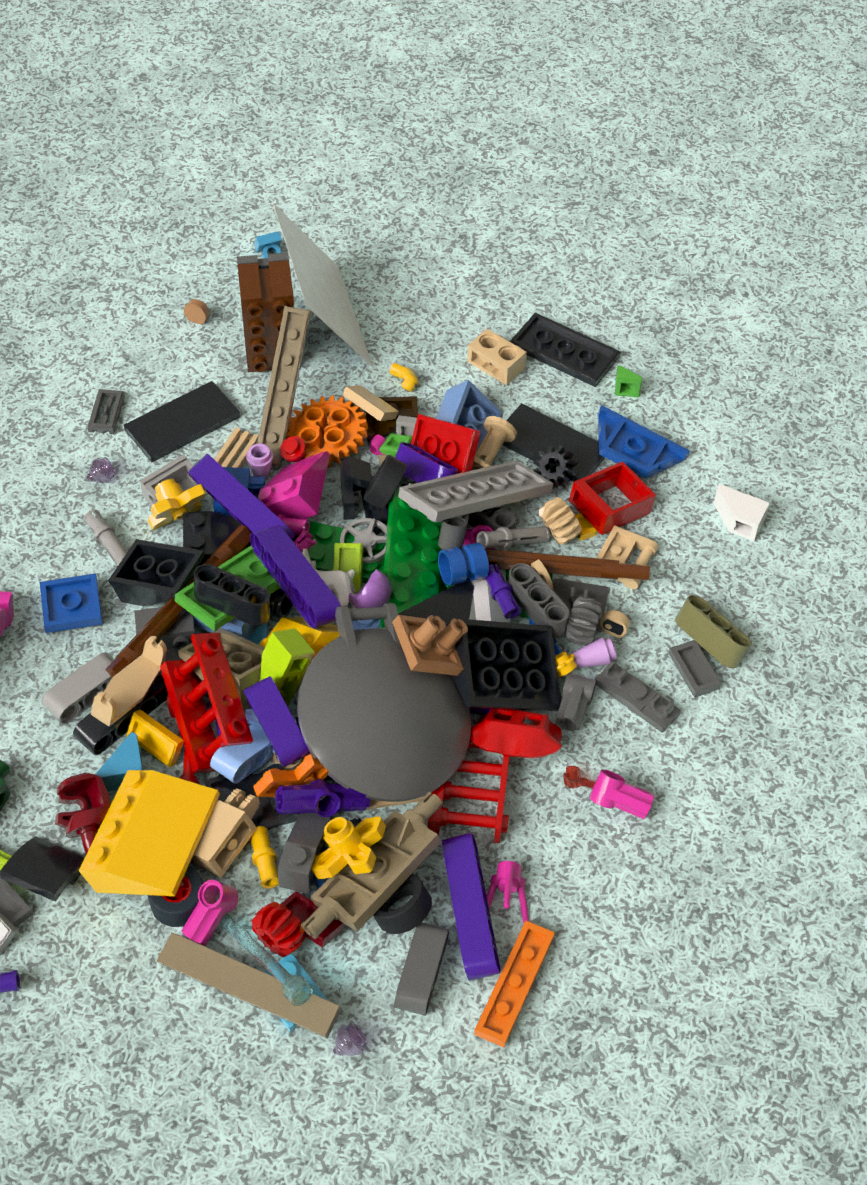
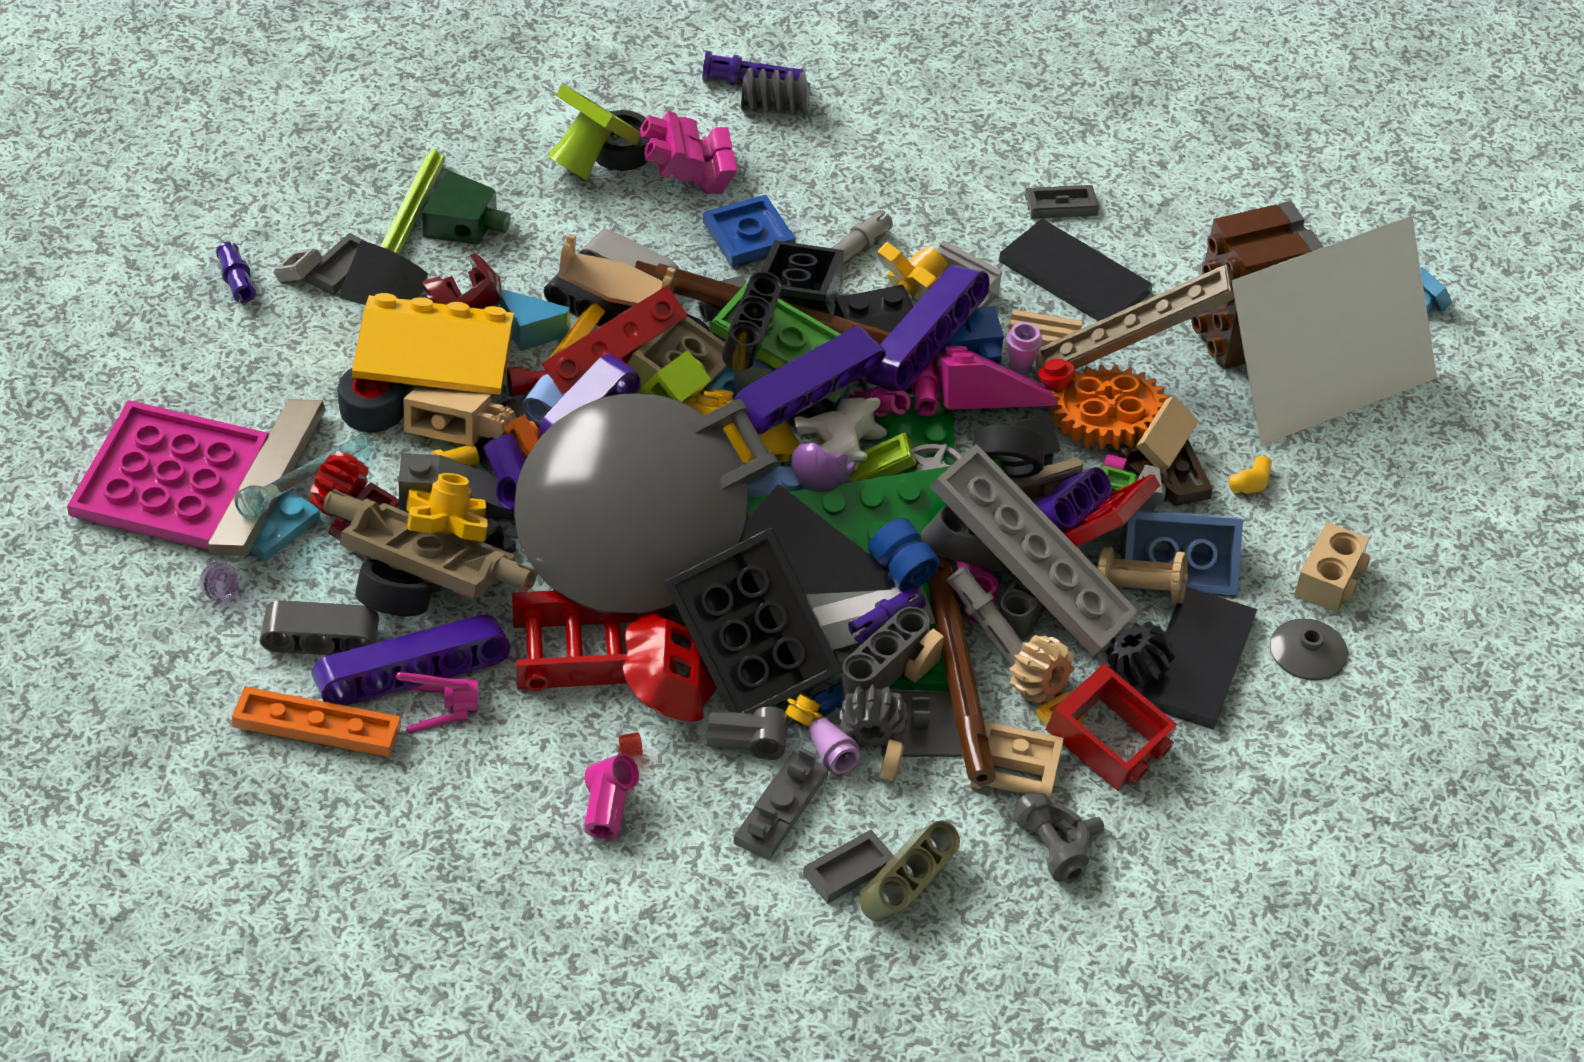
camera: 75 degrees right, 5 degrees down
(101, 470) = (961, 214): clear purple plate -> none
(208, 912) = (356, 421): dark pink piece -> none
(219, 1067) = (166, 474): none -> dark pink plate
(430, 643) = (724, 507): medium nougat plate -> none
(552, 390) = (1306, 659): none -> dark grey dish
(565, 349) = (1394, 651): black tile -> none
(627, 383) = (1348, 723): bright green slope -> none
(635, 445) = (1228, 749): blue wing -> none
(700, 545) = (1065, 860): none -> dark grey piece
(740, 511) = (1148, 890): white slope -> none

